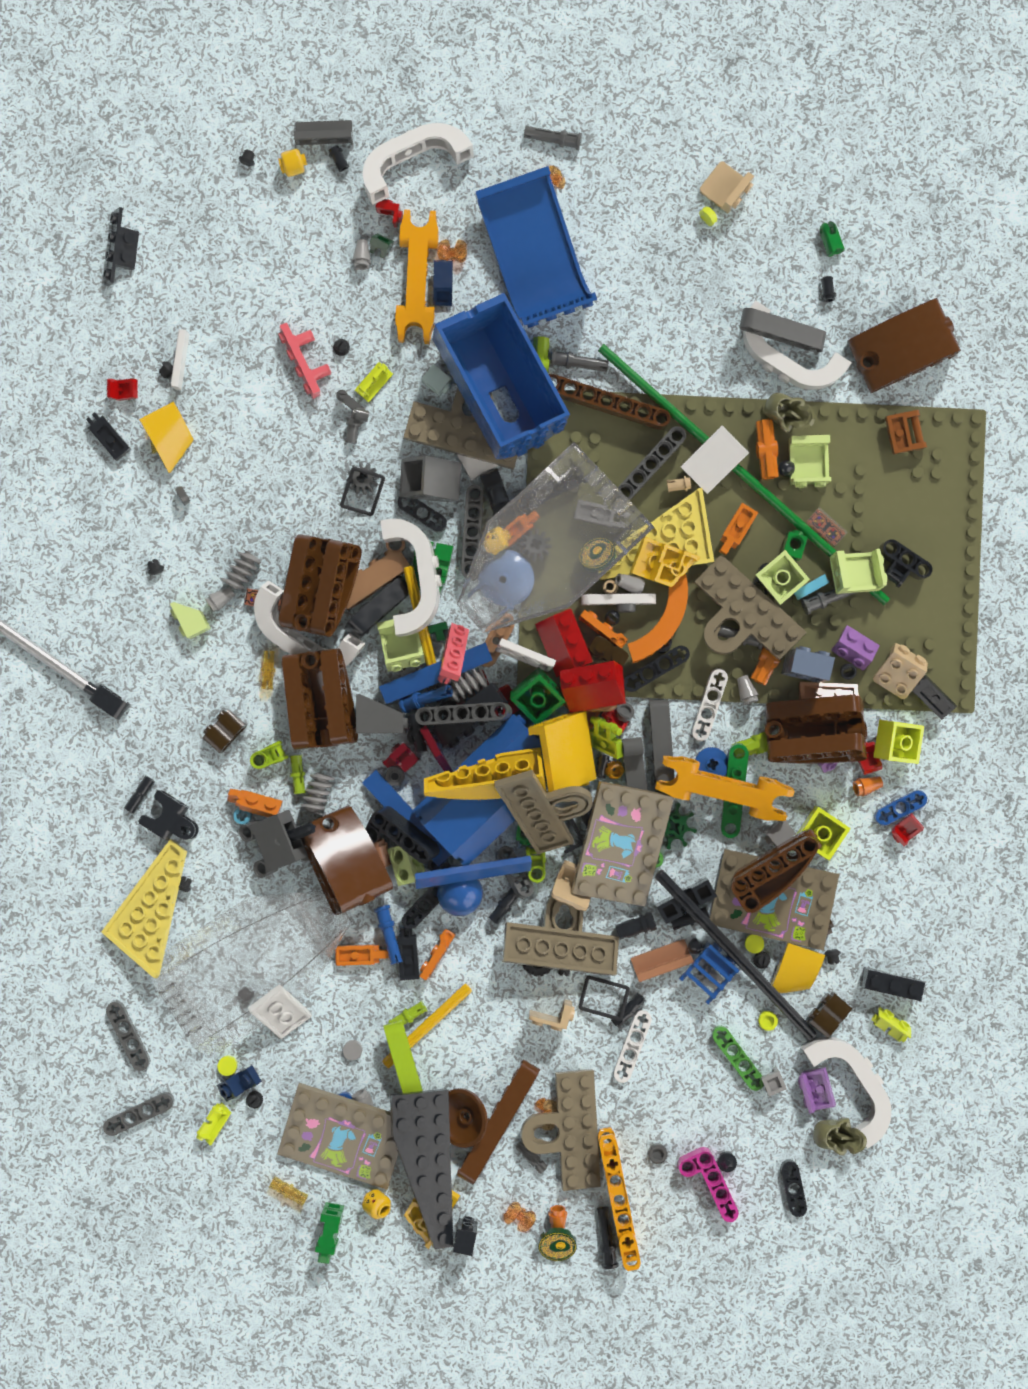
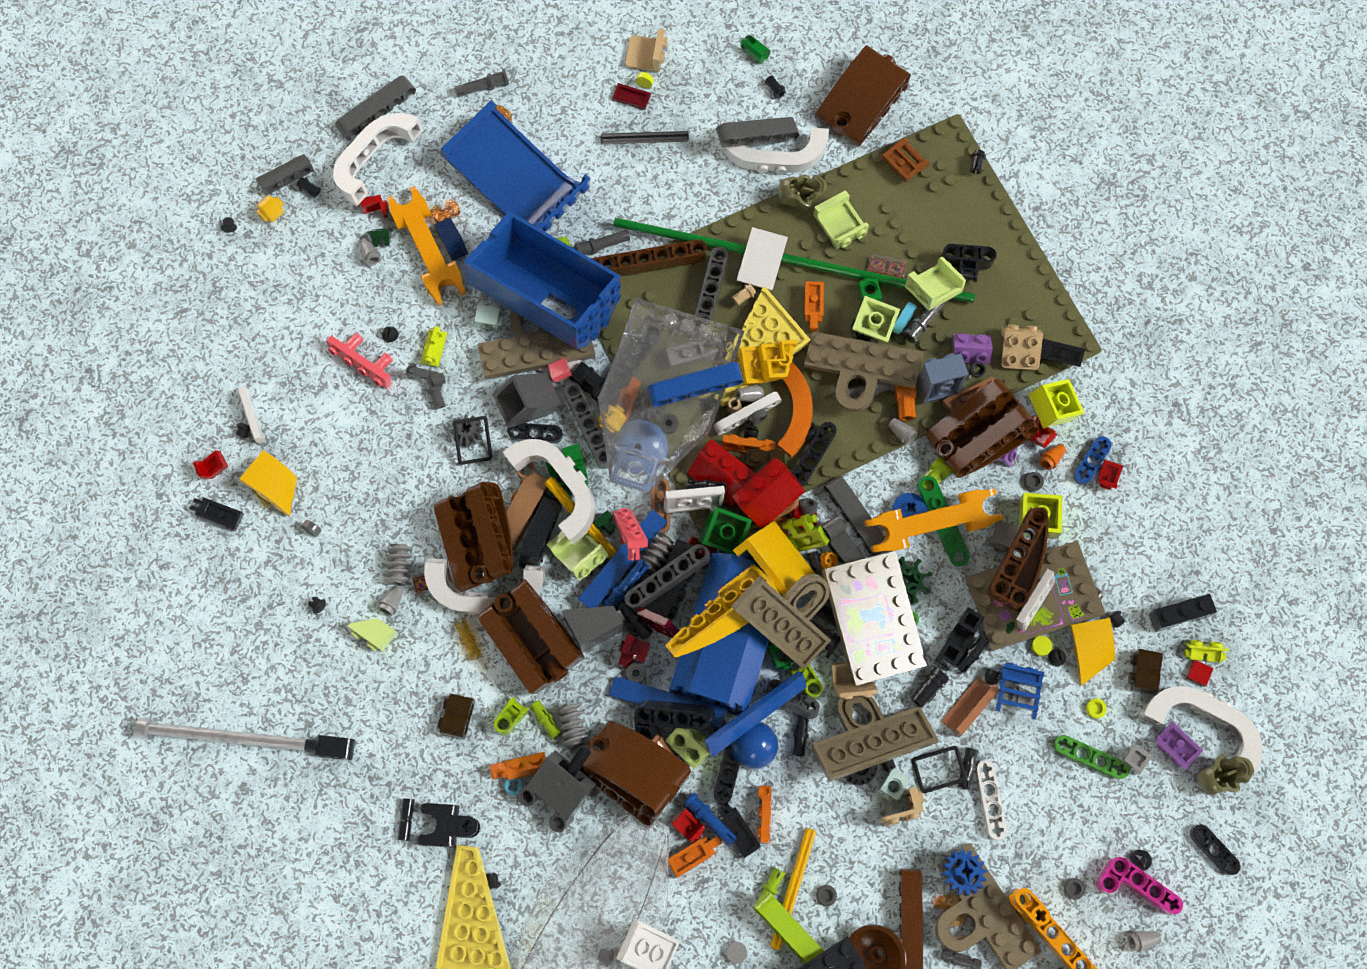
camera: 30 degrees left, 15 degrees down
(122, 247) = (152, 350): black bracket -> none
(368, 928) = (687, 825): none -> red bracket
(439, 107) = (375, 106): none -> dark grey beam
(451, 1046) = (826, 895): none -> dark grey tile
(473, 466) = (559, 370): none -> coral tile
(538, 577) = (668, 423): none -> dark grey tile
(543, 647) = (706, 483): none -> black pin
(561, 983) = (901, 782): none -> light aqua brick
(573, 1087) = (967, 864): none -> blue gear
(581, 555) = (695, 384): none -> blue beam
(676, 275) = (644, 137): none -> black axle
(687, 225) = (631, 96): none -> dark red tile
(687, 1224) = (1143, 940): none -> light grey cone
(712, 705) = (875, 460): white beam -> none
(730, 949) = (1033, 662): black axle -> none
(767, 449) = (800, 229): orange piece -> none
(772, 906) = (1036, 600): none -> white tile
(786, 468) = (825, 234): black hinge -> none
(837, 798) = (1034, 481): none -> dark grey tile
(875, 1040) = (1200, 673): none -> red tile
(975, 466) = (978, 157): none -> black pin

